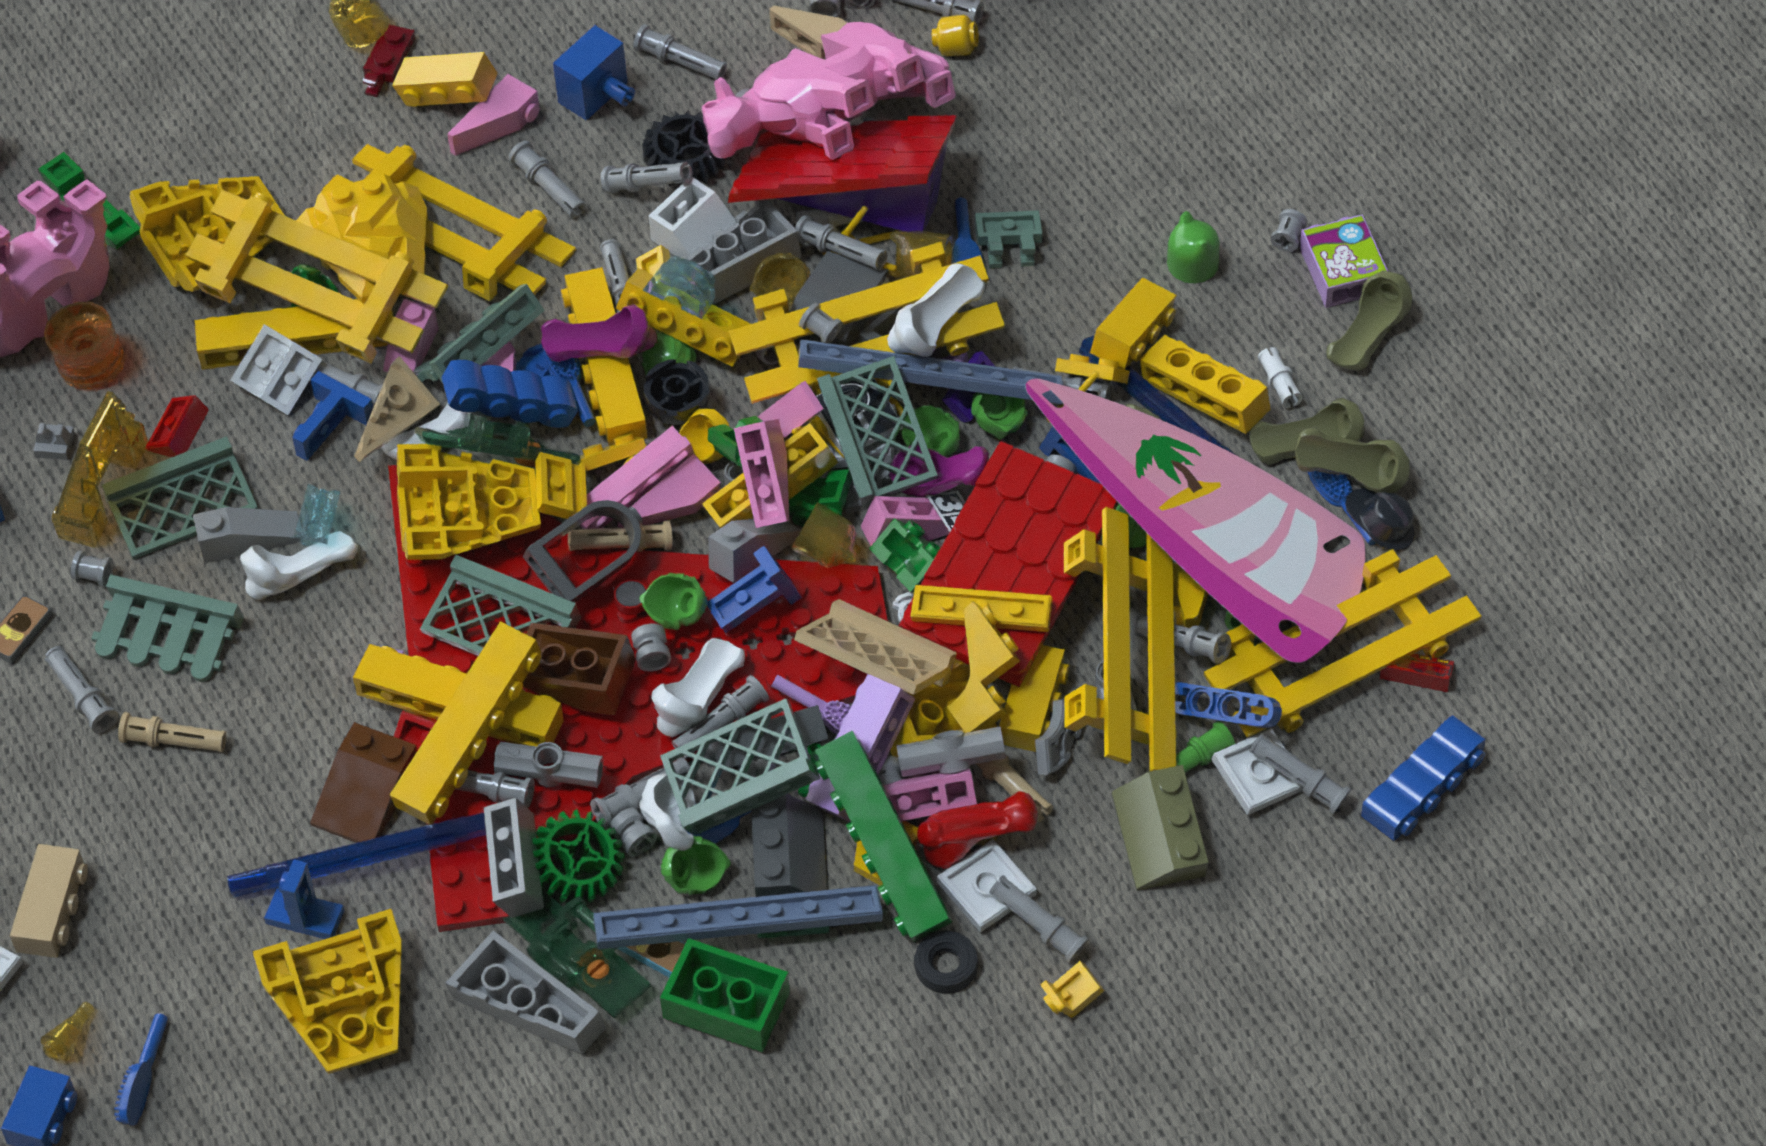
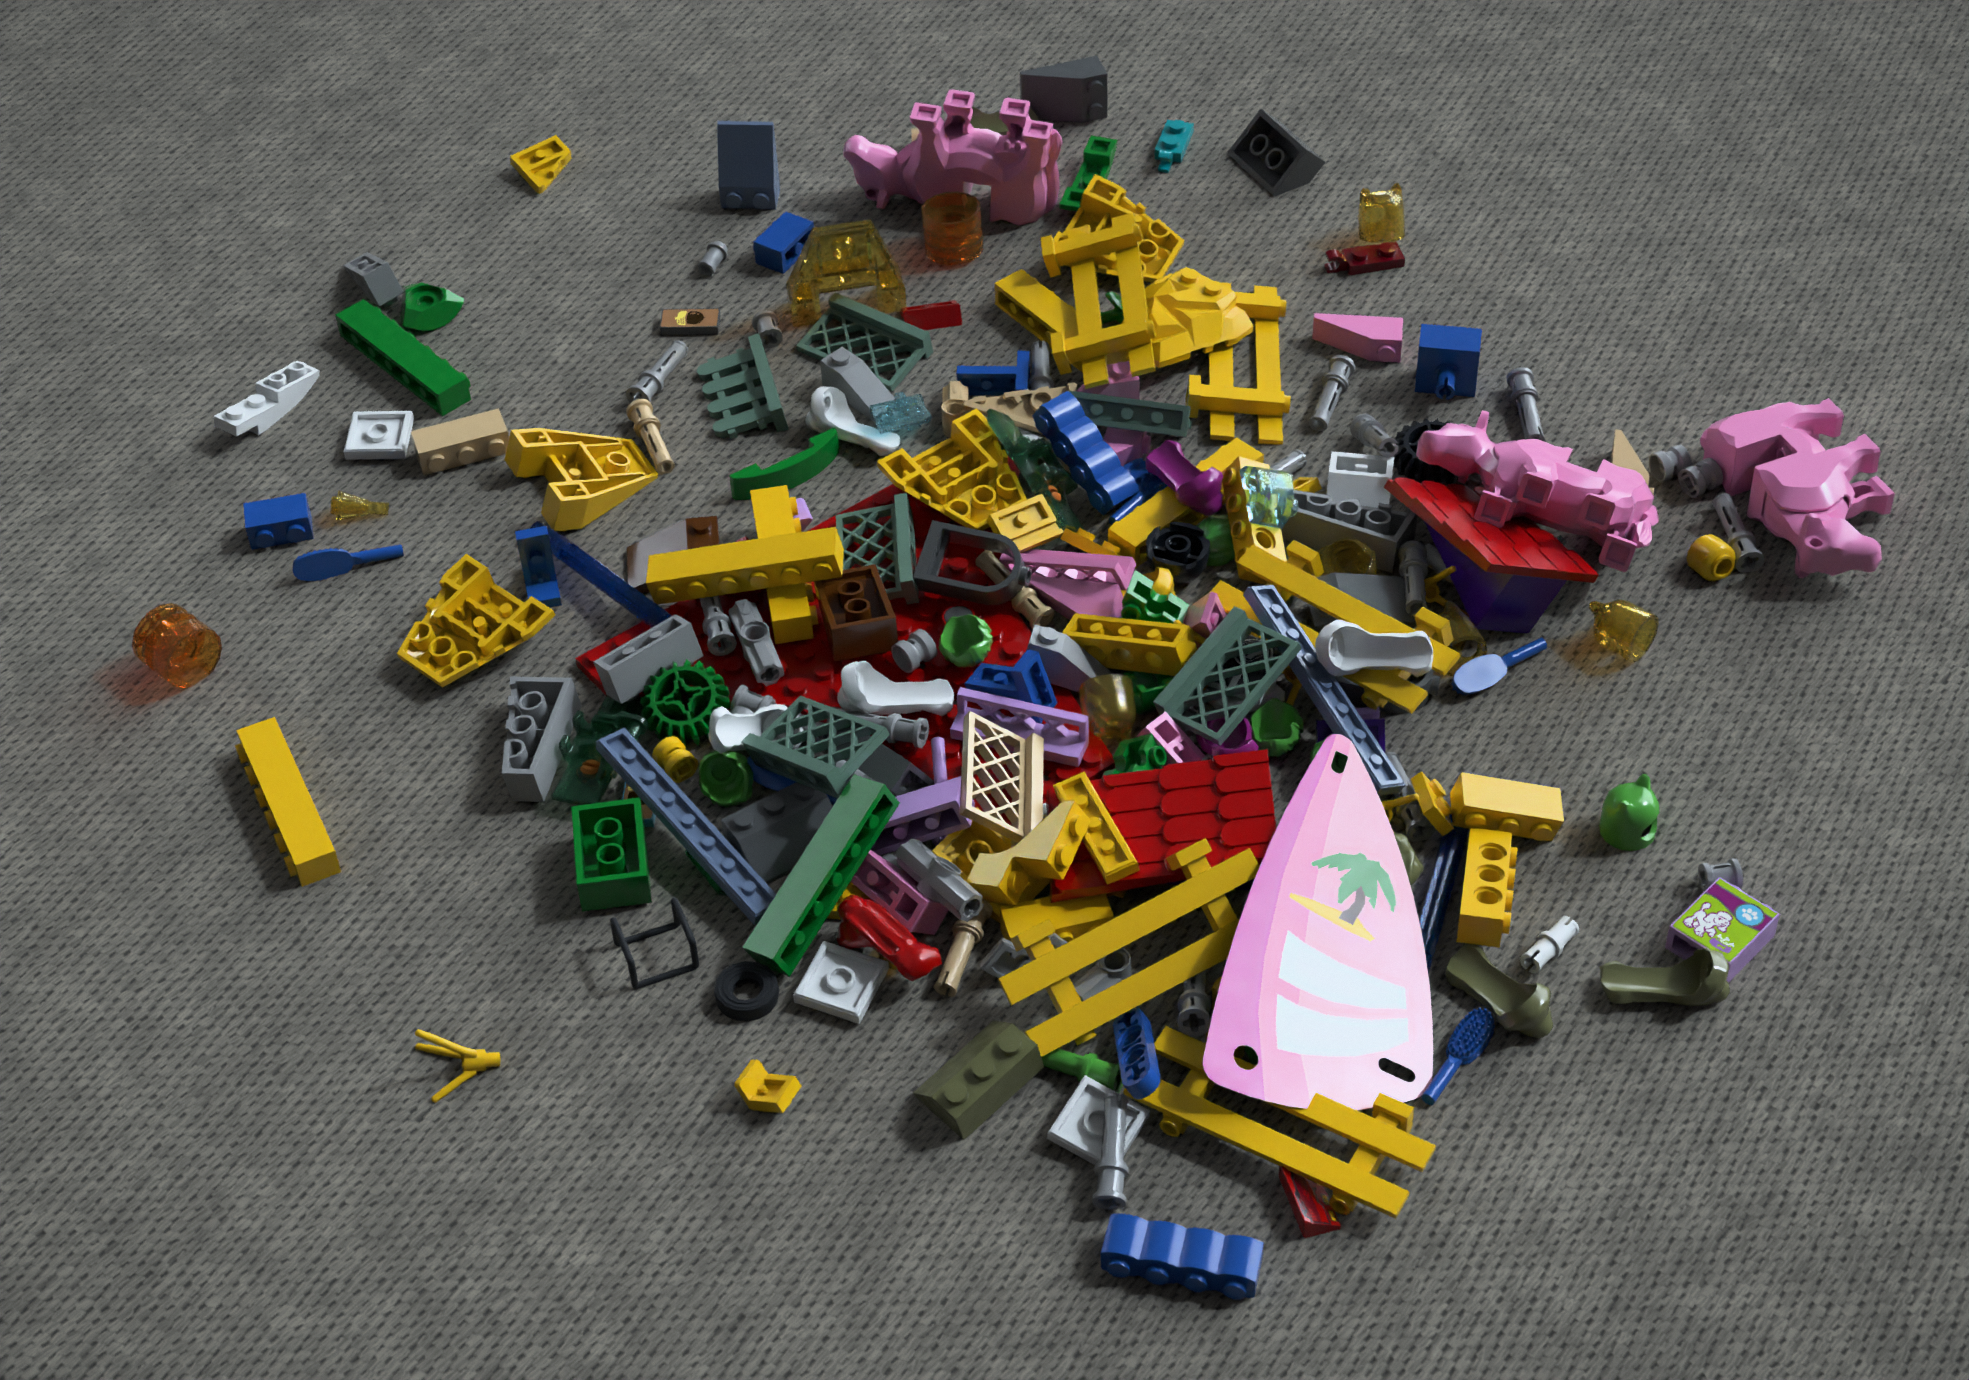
camera: 60 degrees right, 10 degrees down
(91, 114) = (1173, 143): none -> teal plate
(178, 806) = (583, 472): none -> yellow wedge
(187, 46) = (1275, 155): none -> dark grey slope
(276, 369) = (1015, 329): white slope -> none
(314, 670) = (791, 471): none -> green slope
(337, 469) = (952, 402): none -> tan piece
(445, 79) = (1364, 288): yellow brick -> none
(642, 895) = (675, 759): none -> yellow wheel
(765, 470) = (1124, 615): bright pink slope -> none
(779, 624) = (1059, 743): none -> lavender fence
(820, 323) = (1301, 589): light grey bush -> none
(821, 1022) = (679, 919): none -> black piece
(995, 137) = (1624, 628): none -> clear yellow piece
(1009, 228) = (1540, 684): sand green plate -> none
(1052, 929) = (821, 1043): light grey pin -> none
(1375, 465) = (1503, 1051): olive hair -> none
(1383, 516) = (1455, 1093): black piece -> none

